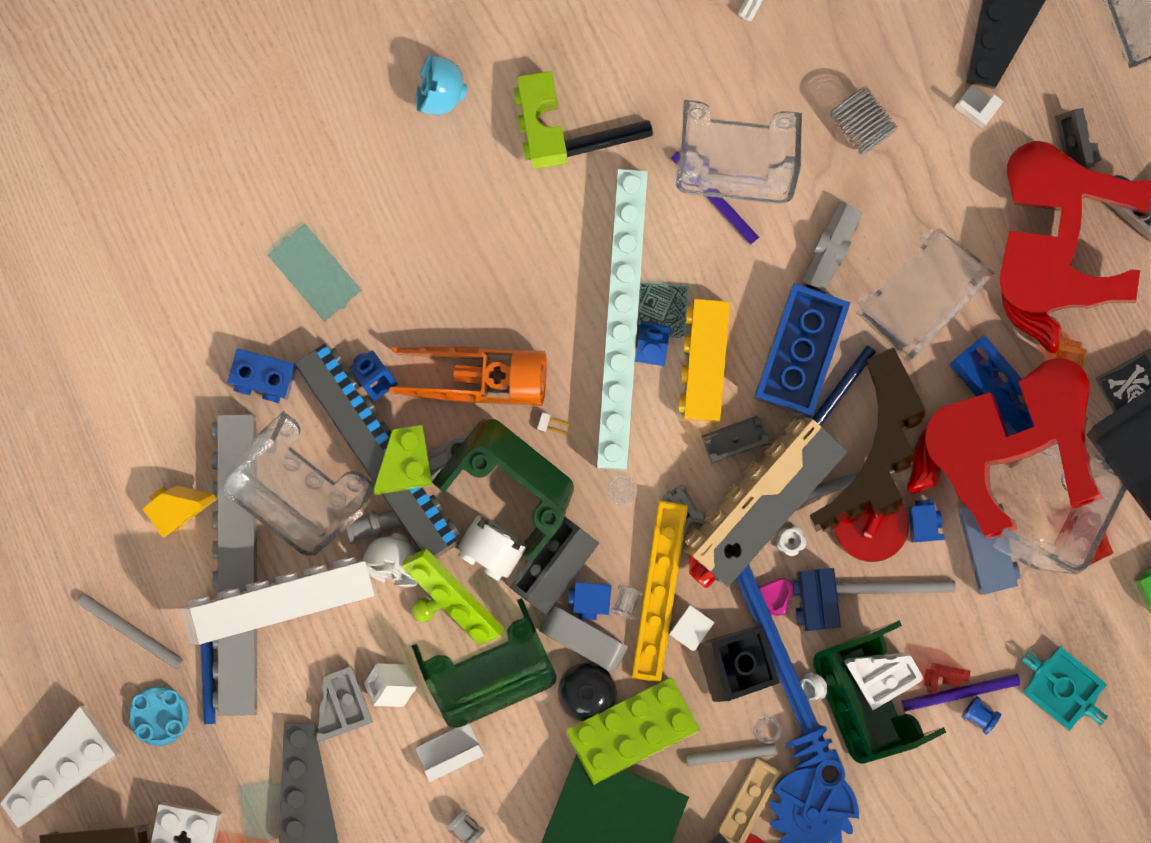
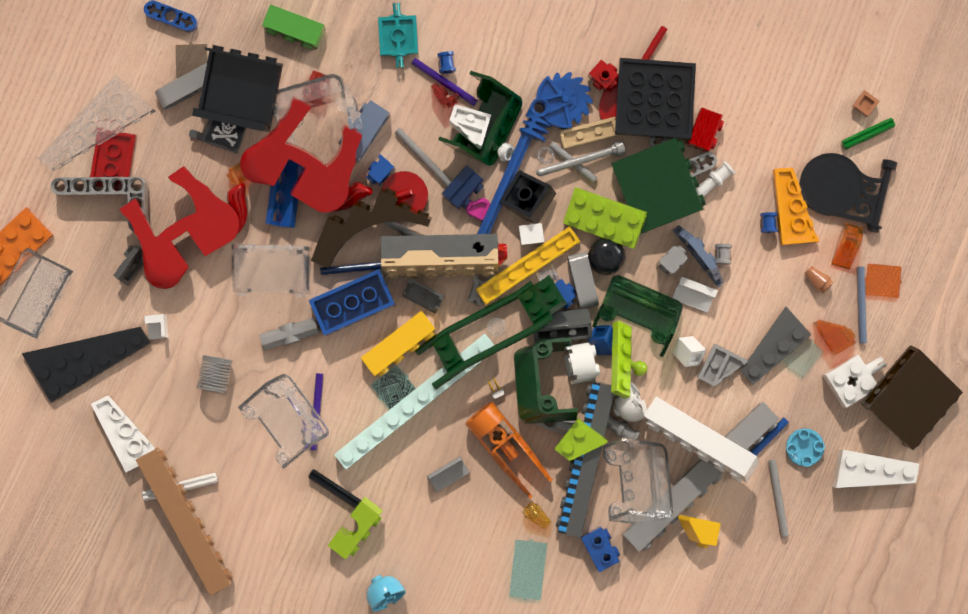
camera: 130 degrees left, 0 degrees up
(366, 338) = (535, 514): none -> clear yellow cone
(369, 369) = (551, 499): blue brick -> none
(476, 800) = (696, 248): none -> sand blue wing
(496, 597) = (602, 339): none -> blue panel
(505, 281) = (448, 474): none -> light grey panel
(511, 762) = (672, 260): none -> light grey brick
(602, 562) = (538, 301): none -> dark green plate
(652, 343) = (414, 376): blue brick -> none
(700, 817) = (615, 149): none -> light grey piece
(799, 541) = (441, 225): white plate -> none

